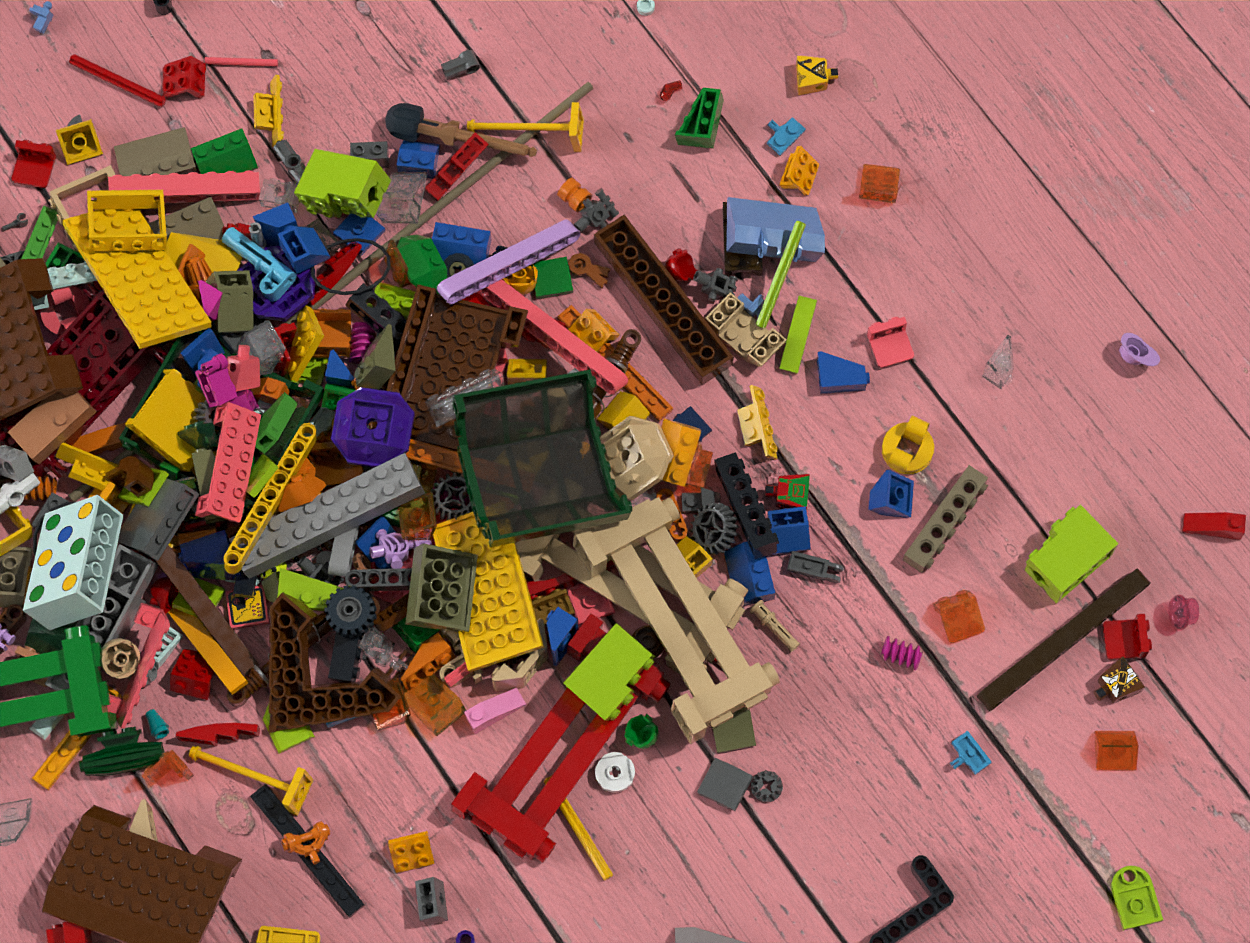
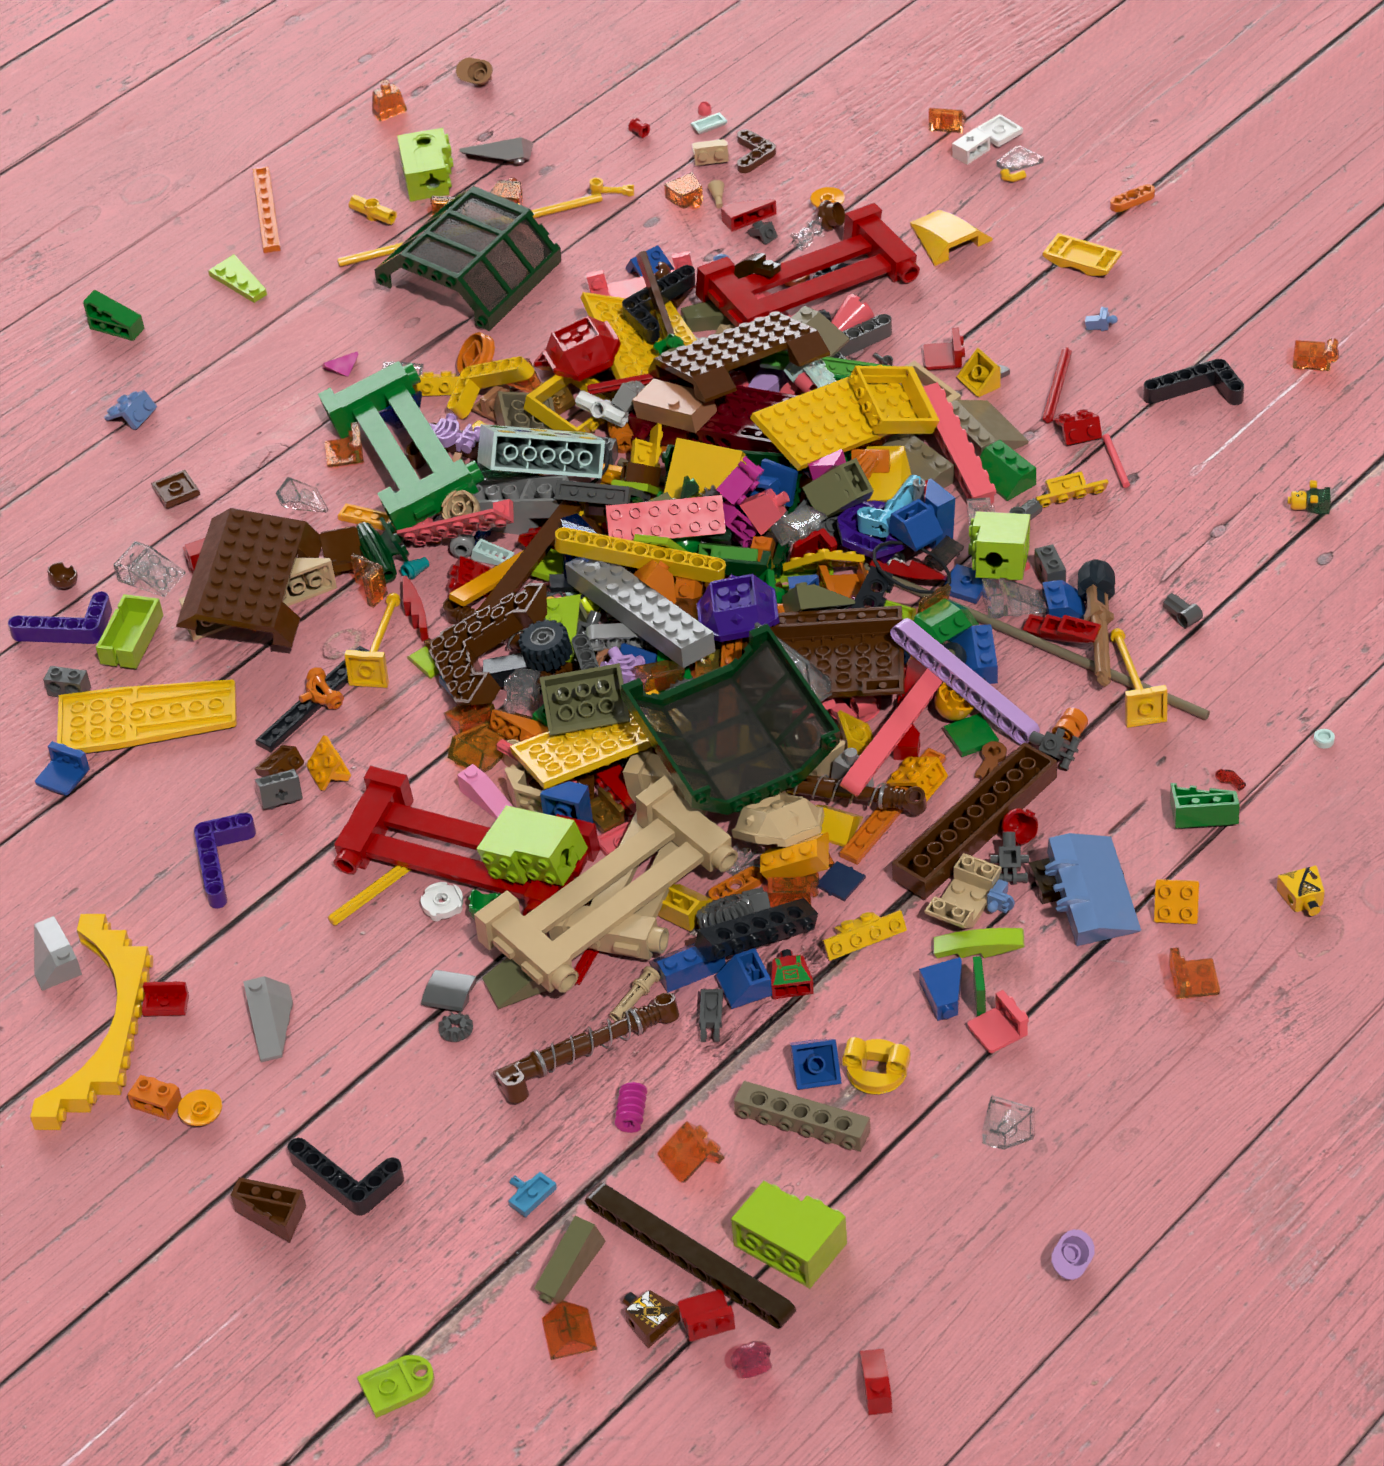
camera: 80 degrees right, 25 degrees down
(116, 791) = (339, 546): none -> reddish brown bracket
(390, 897) = (281, 760): none -> reddish brown bracket
(780, 274) = (1034, 895): lime axle -> none
(784, 135) = (1219, 885): dark azure plate -> none
(825, 685) = (513, 1077): none -> reddish brown piece
(854, 345) = (979, 985): none -> green tile
(1053, 734) = (569, 1260): none -> olive slope

